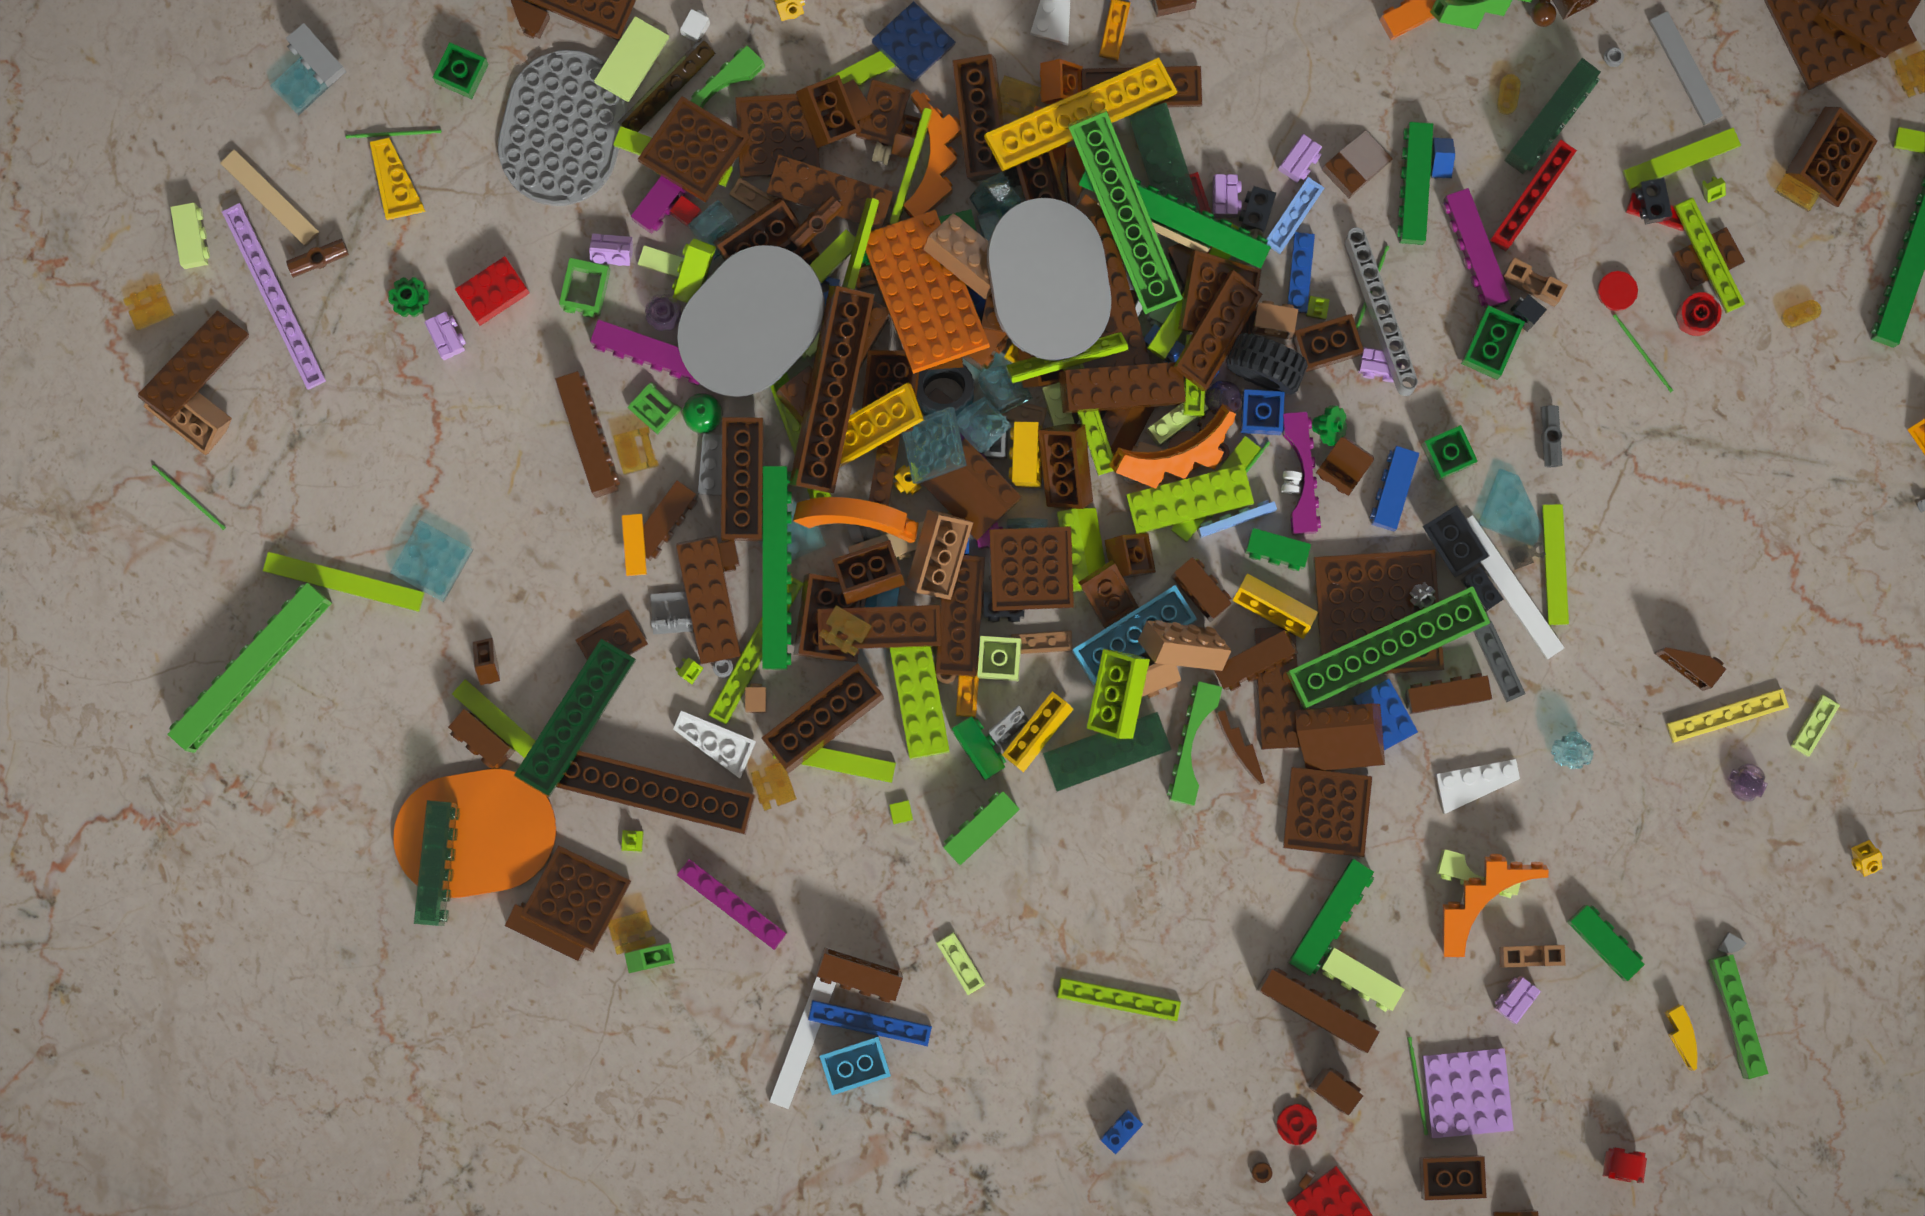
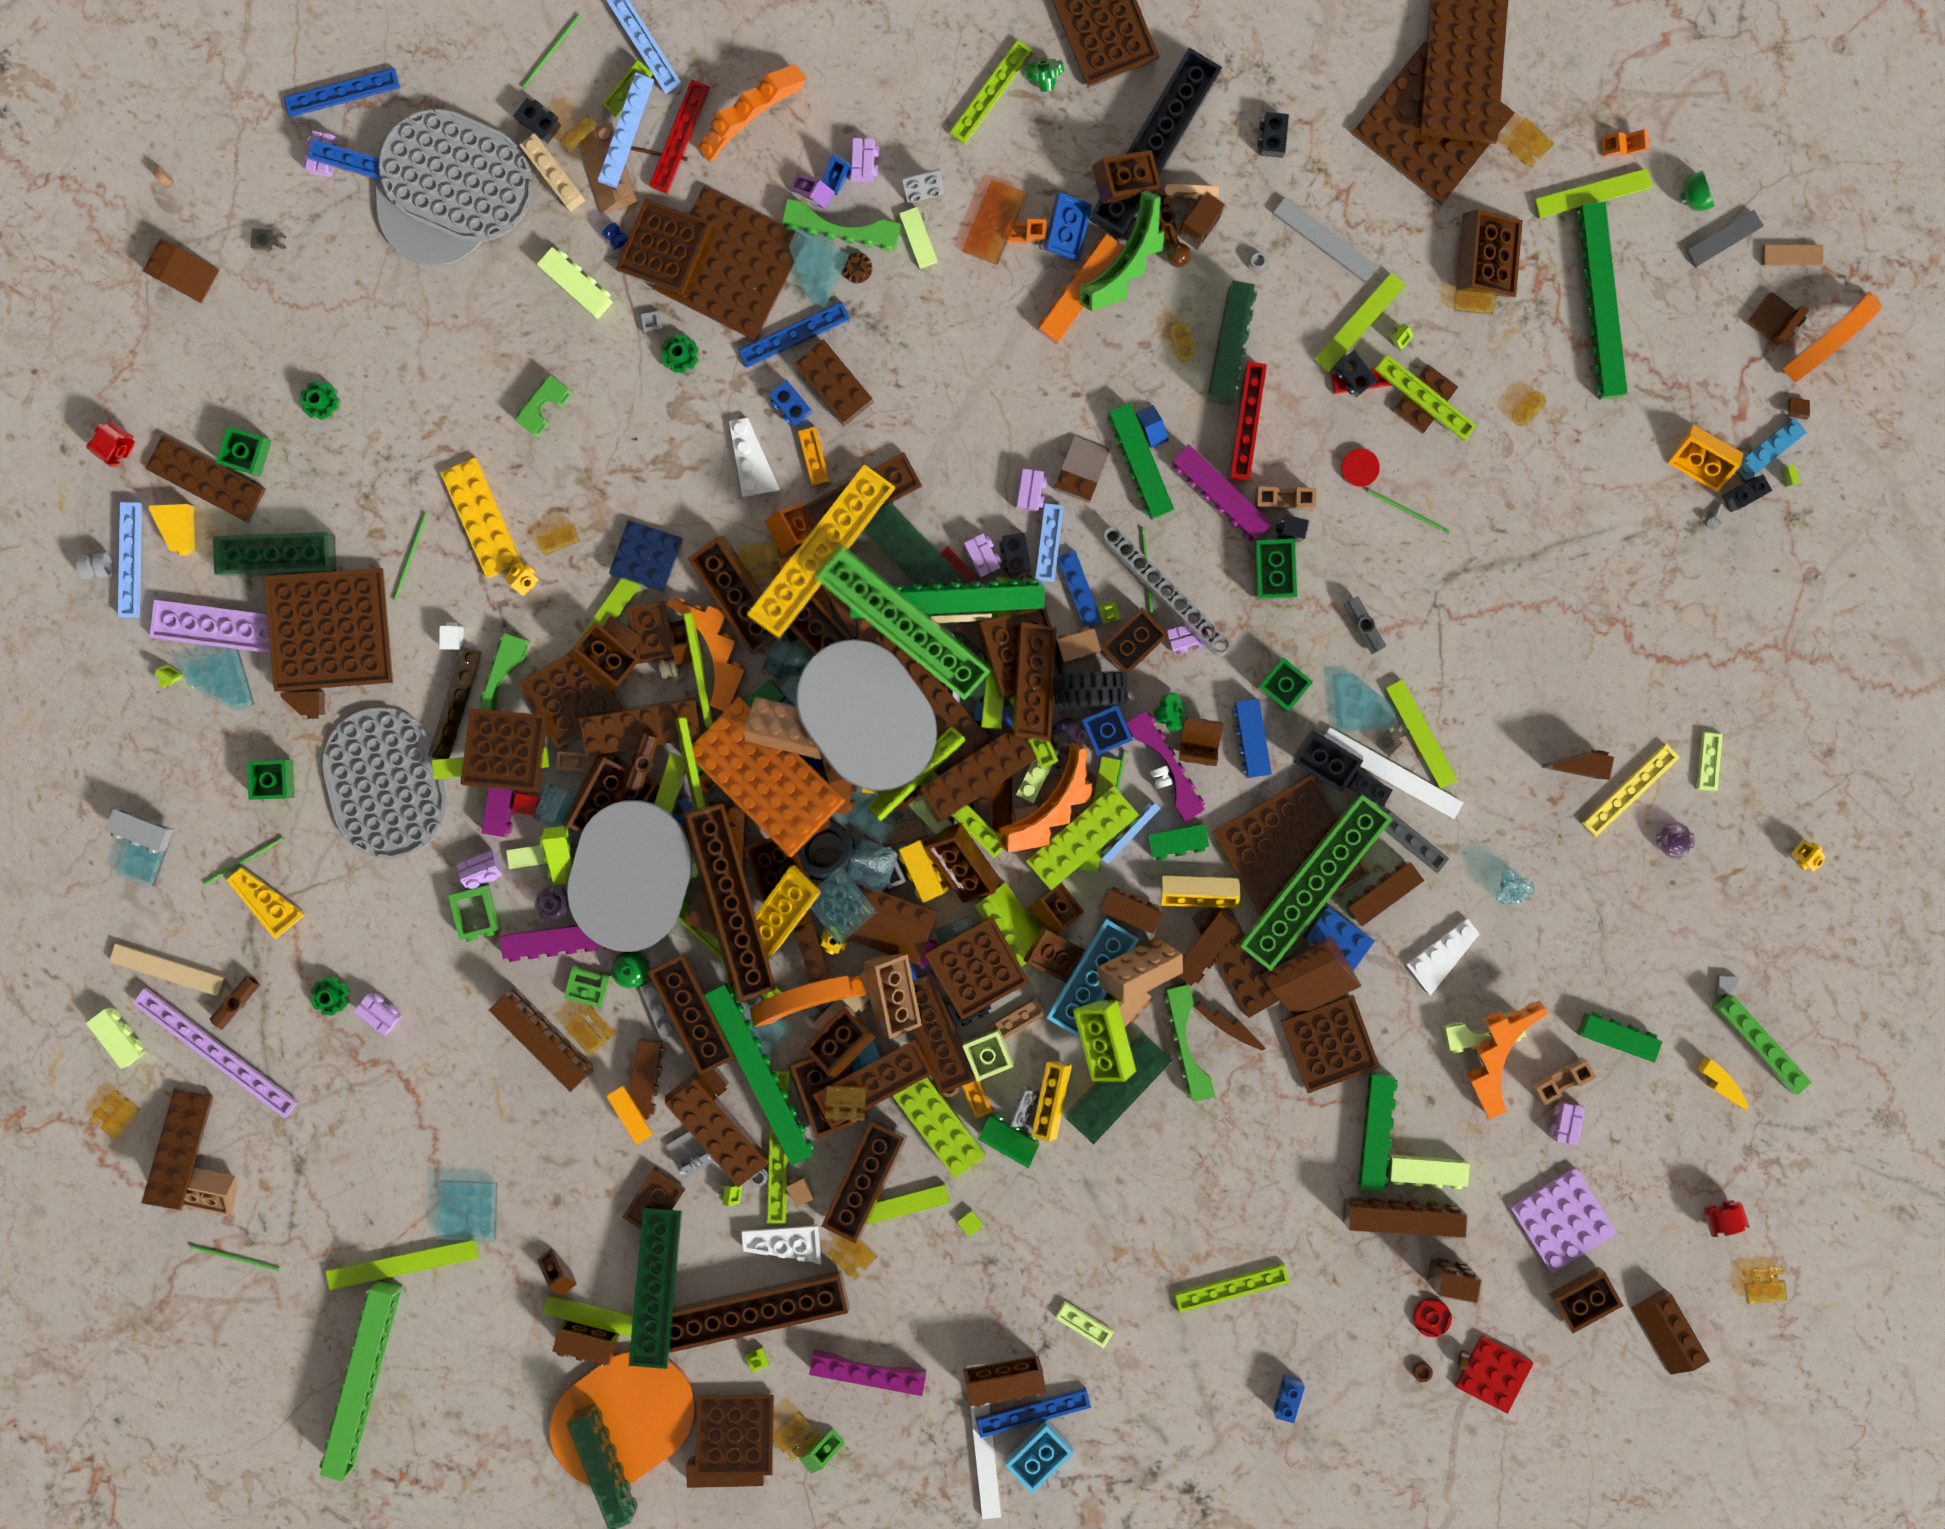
camera: 25 degrees left, 5 degrees up
(492, 291) = (397, 956): red brick -> none
(631, 59) = (412, 694): yellowish green tile -> none
(981, 828) = (1045, 1206): bright green brick -> none
(1417, 1085) = (1518, 1234): bright green piece -> none
(1422, 595) = (1322, 821): light grey gear -> none
(1707, 307) = (1444, 444): red brick -> none

